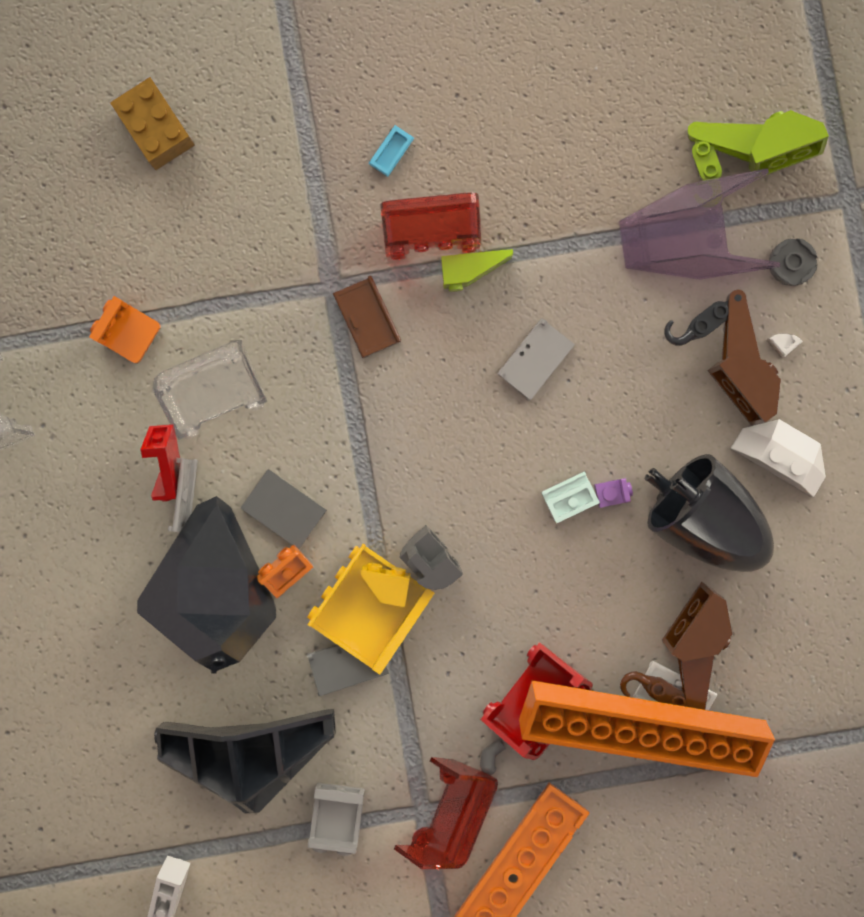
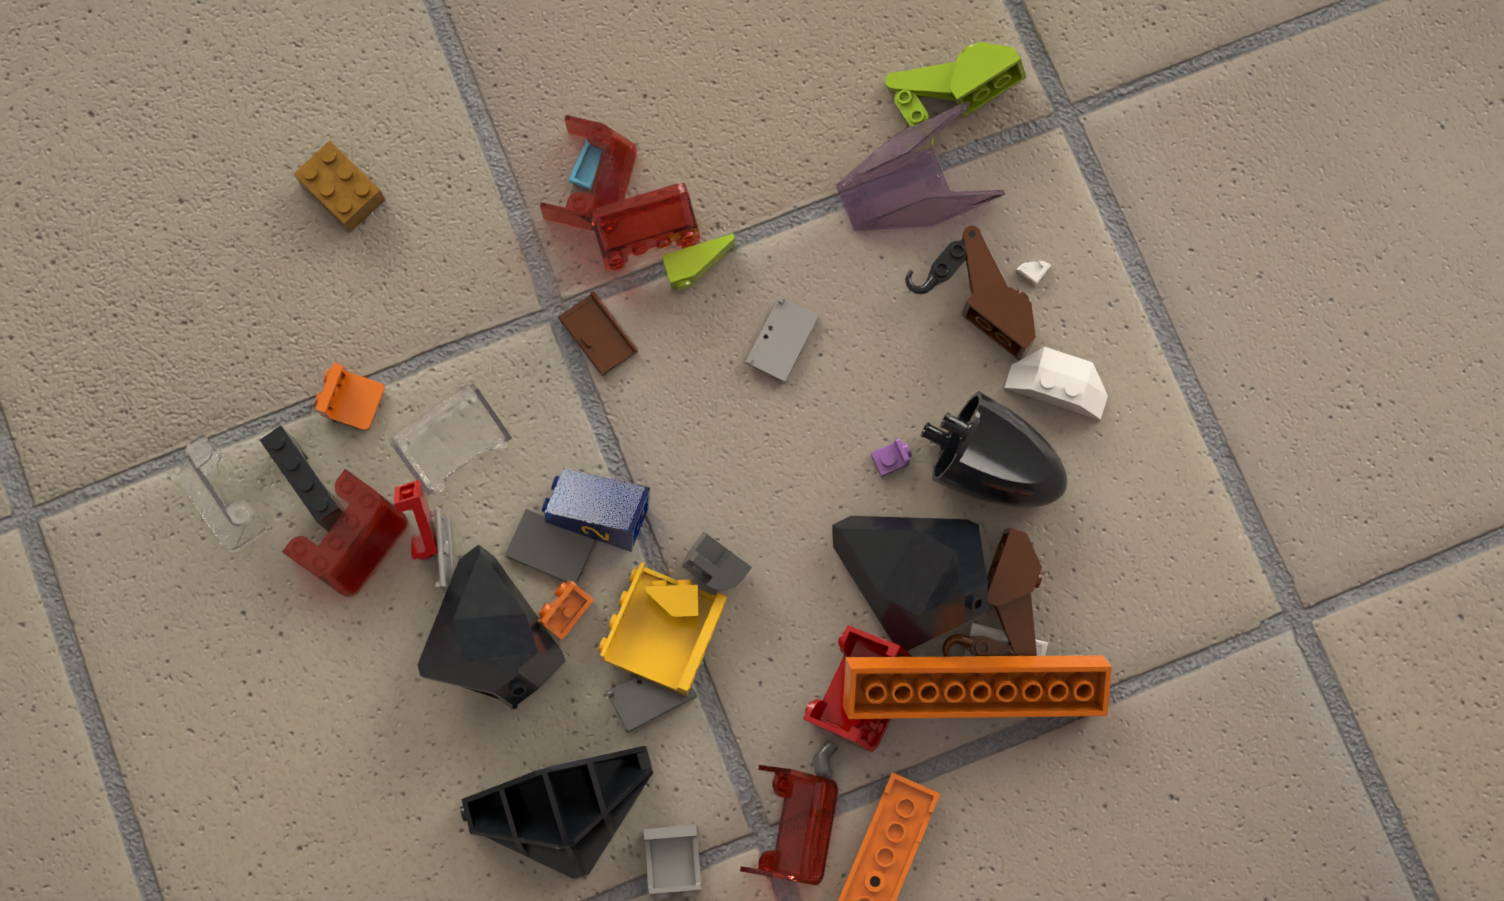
camera: 10 degrees left, 10 degrees down
(53, 375) = (294, 466): none -> black arch
(104, 468) = (356, 540): none -> clear red windscreen
(332, 483) = (598, 507): none -> clear blue slope
(409, 169) = (610, 179): none -> clear red windscreen
(570, 497) = (847, 471): light aqua plate -> none
(617, 614) = (915, 572): none -> black panel
(796, 261) = (1024, 189): dark grey tile -> none

